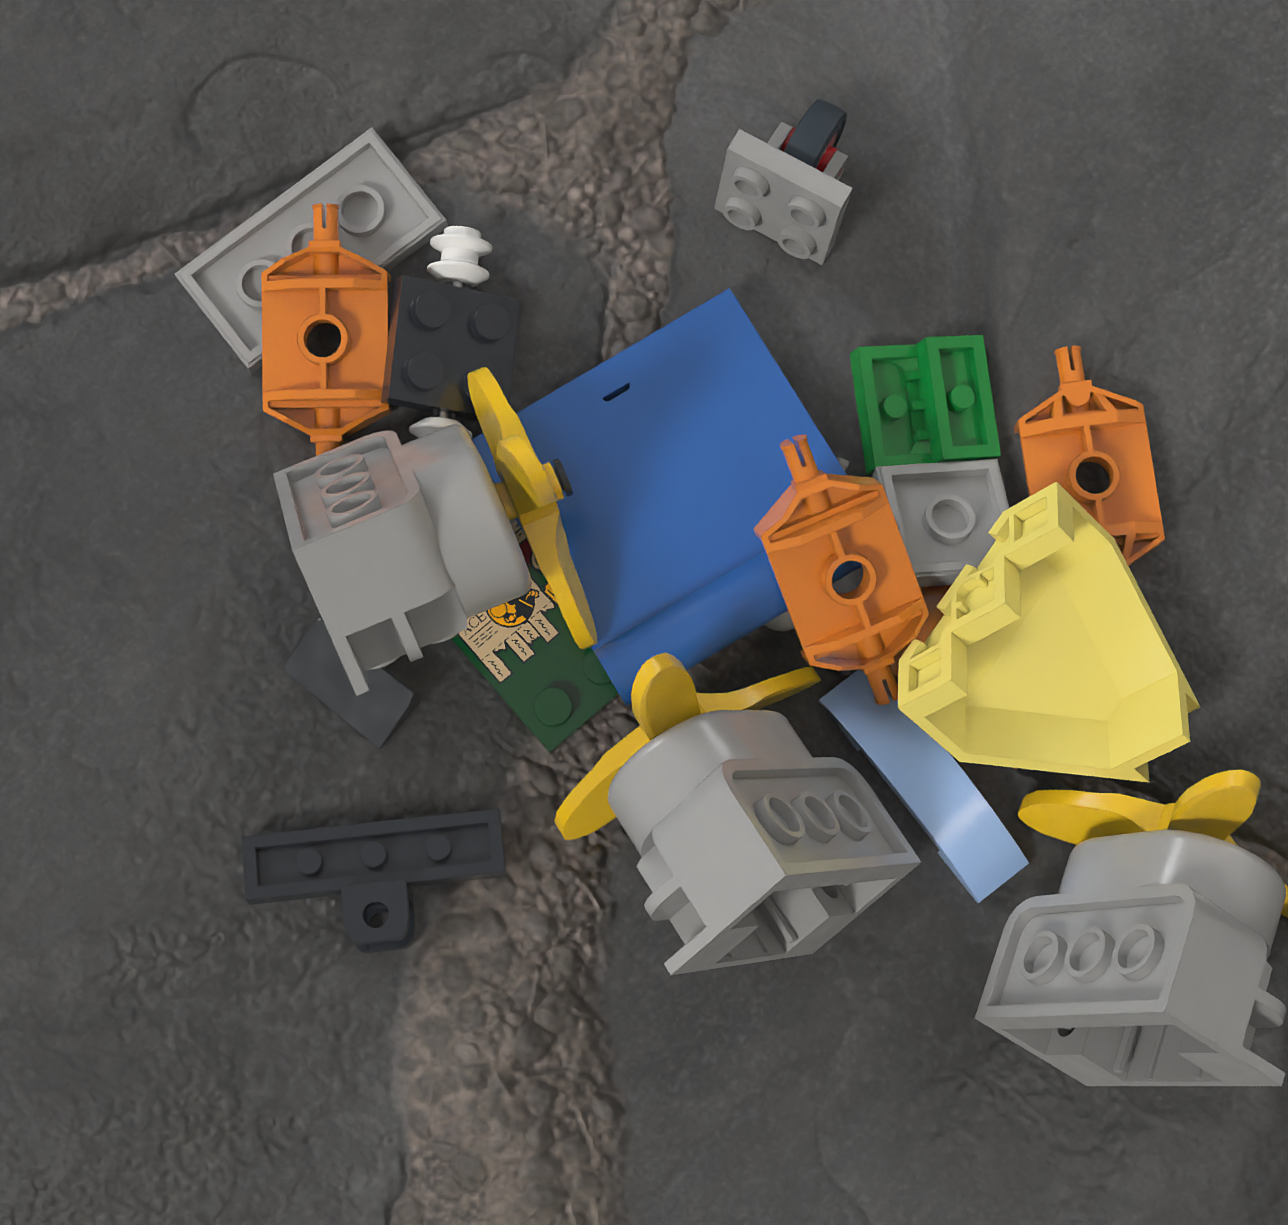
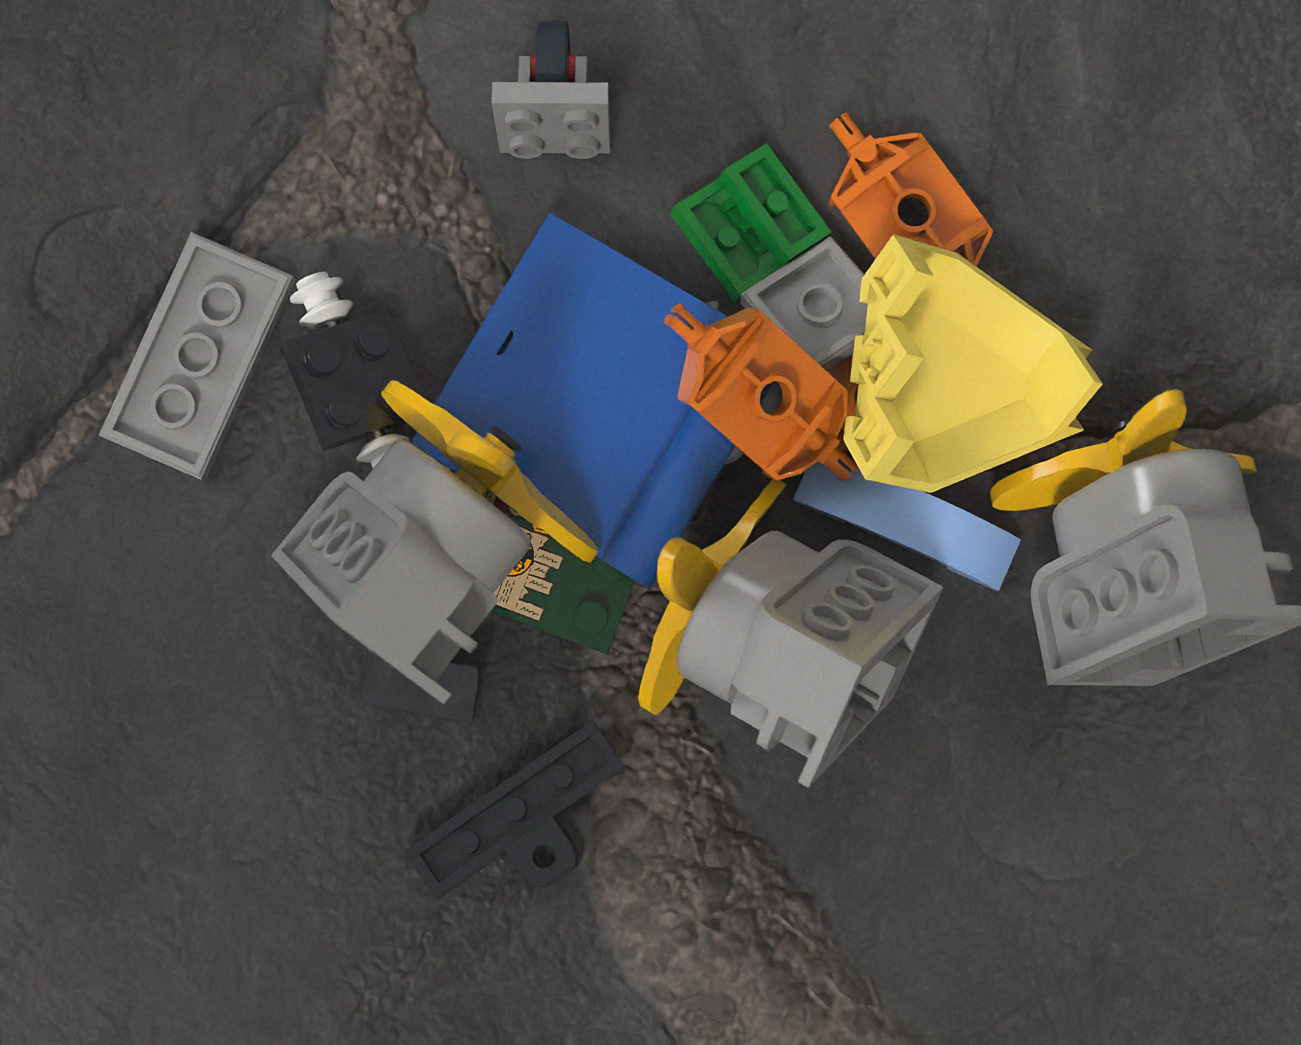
camera: 30 degrees left, 5 degrees up
(313, 287) = (239, 378): orange plate -> none

